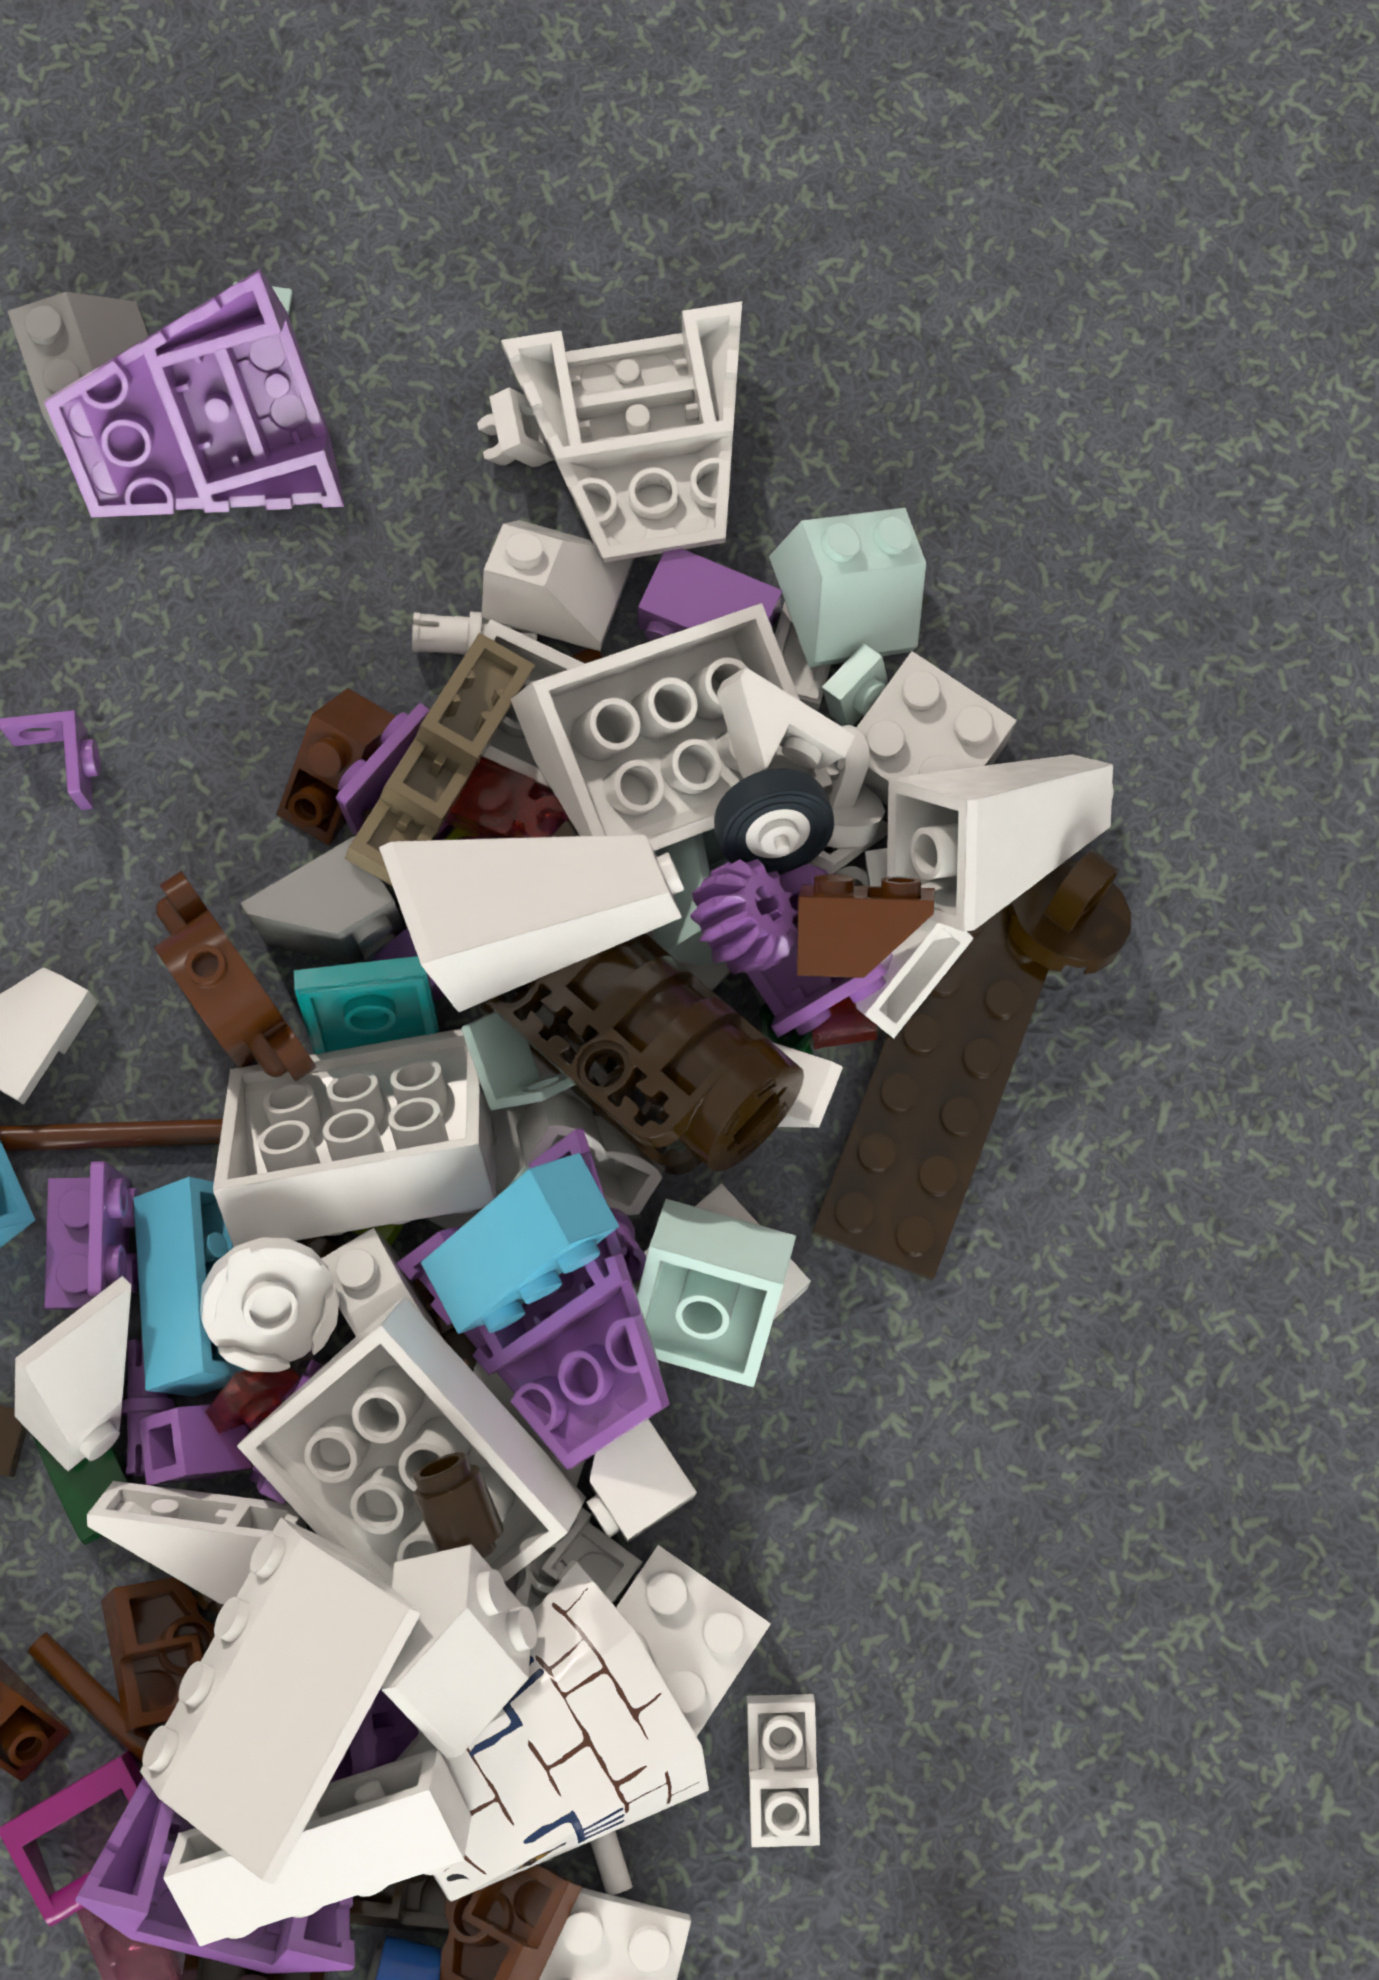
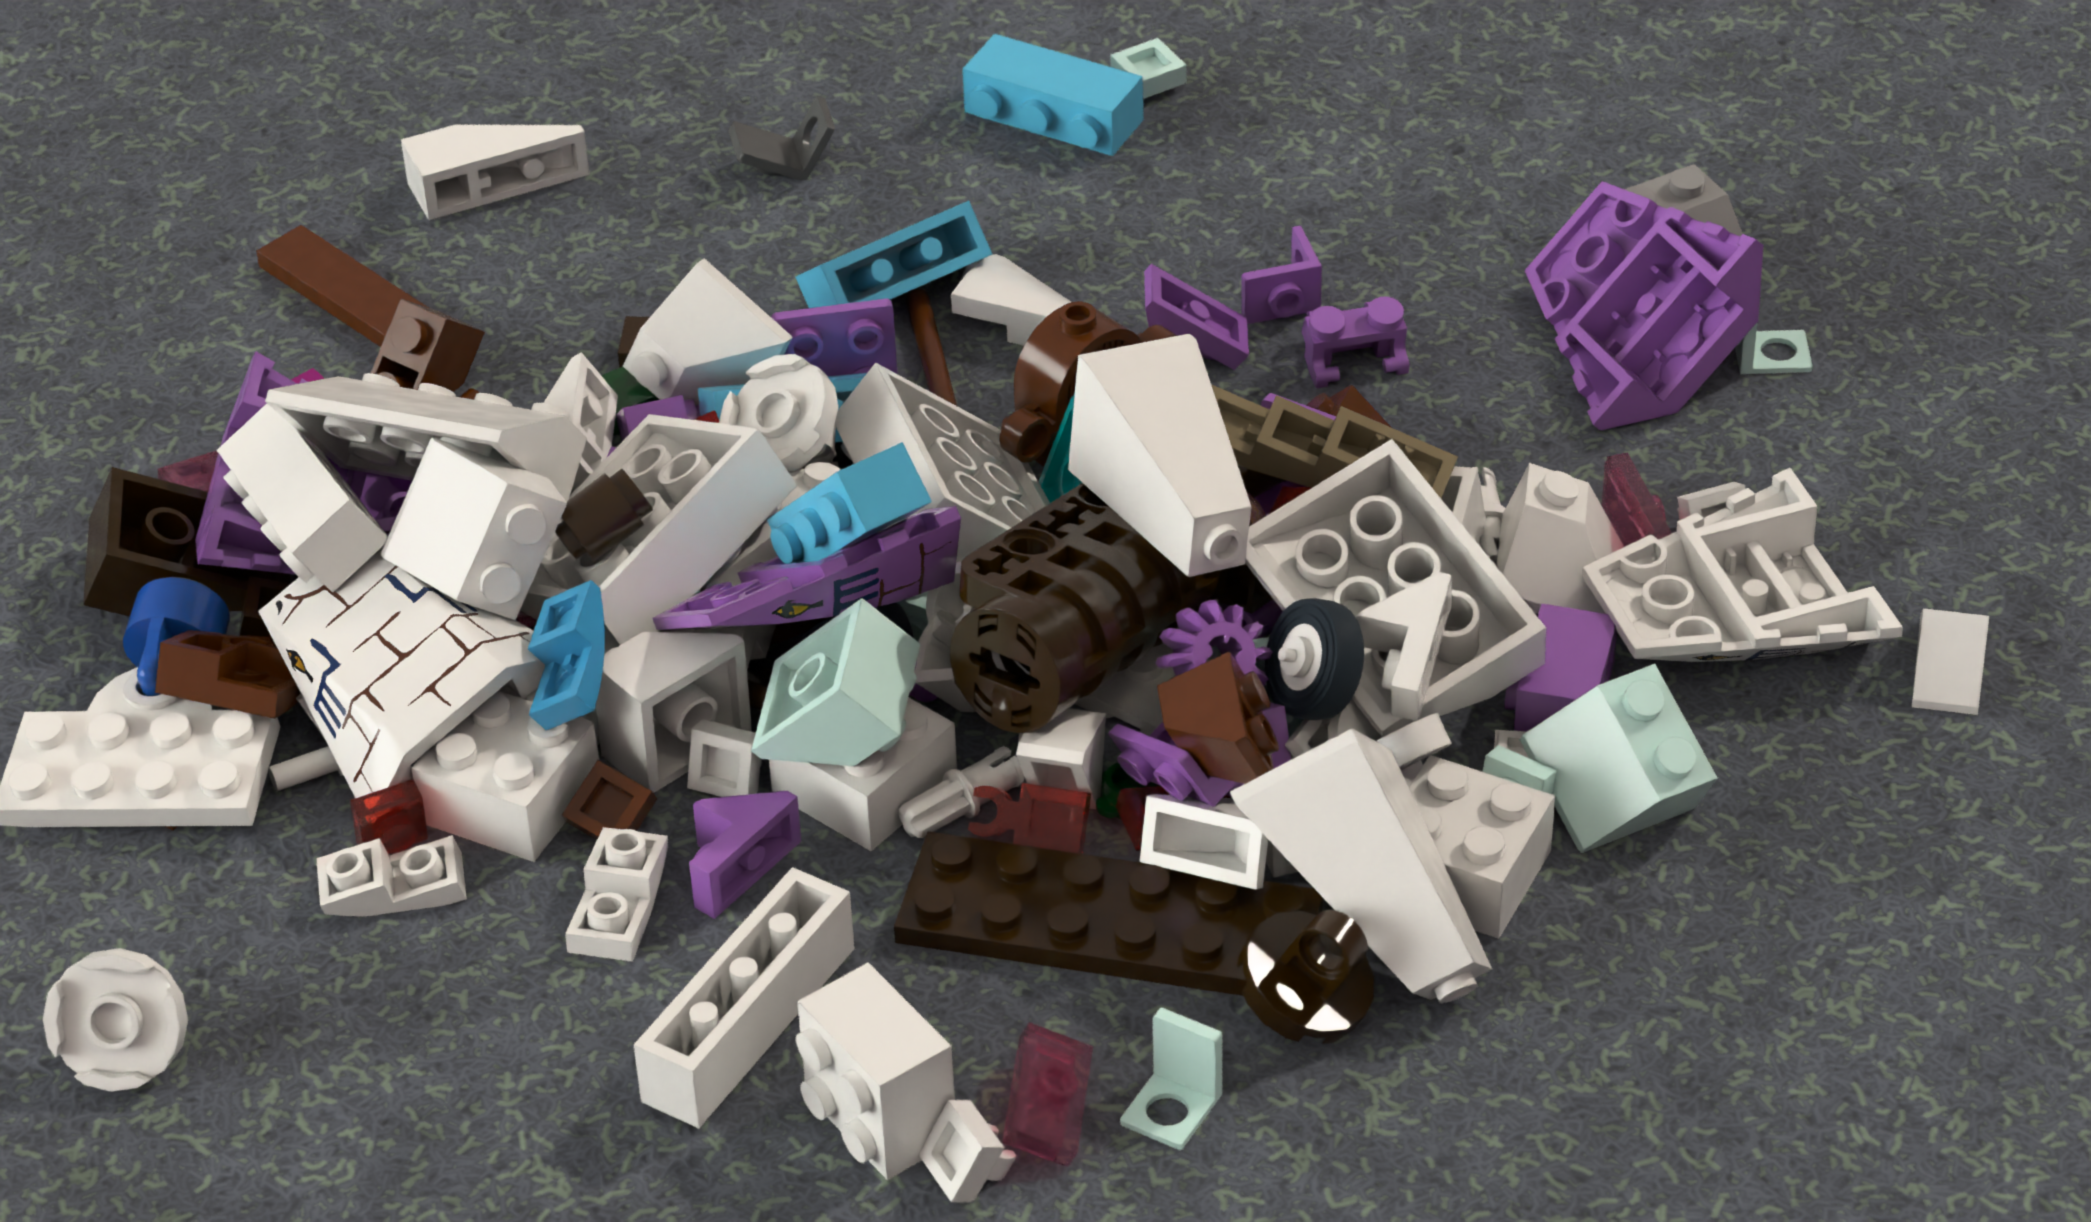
camera: 85 degrees right, 35 degrees down
(117, 857) = (1185, 310): none -> medium lavender slope
(172, 703) = (1333, 331): none -> medium lavender piece
(499, 497) = (1629, 502): none -> clear pink plate
(622, 1557) = (572, 647): none -> dark azure slope
(689, 1416) = (722, 760): none -> white tile
(724, 1768) = (392, 815): none -> clear red plate
(731, 268) = (1950, 661): none -> white slope
(733, 1539) = (608, 801): none -> reddish brown plate
(770, 1198) = (955, 794): none -> white axle
(801, 1399) = (739, 844): none -> medium lavender slope
(807, 1153) = (1041, 818): none -> clear red plate
(844, 1540) = (618, 894): none -> white slope
(1035, 1428) = (744, 997): none -> white brick
(1157, 1035) = (1184, 1069): none -> light aqua bracket
(1164, 1165) = (1048, 1094): none -> clear pink plate
(1170, 1308) = (873, 1068): none -> white brick
(1230, 1249) = (964, 1152): none -> white tile

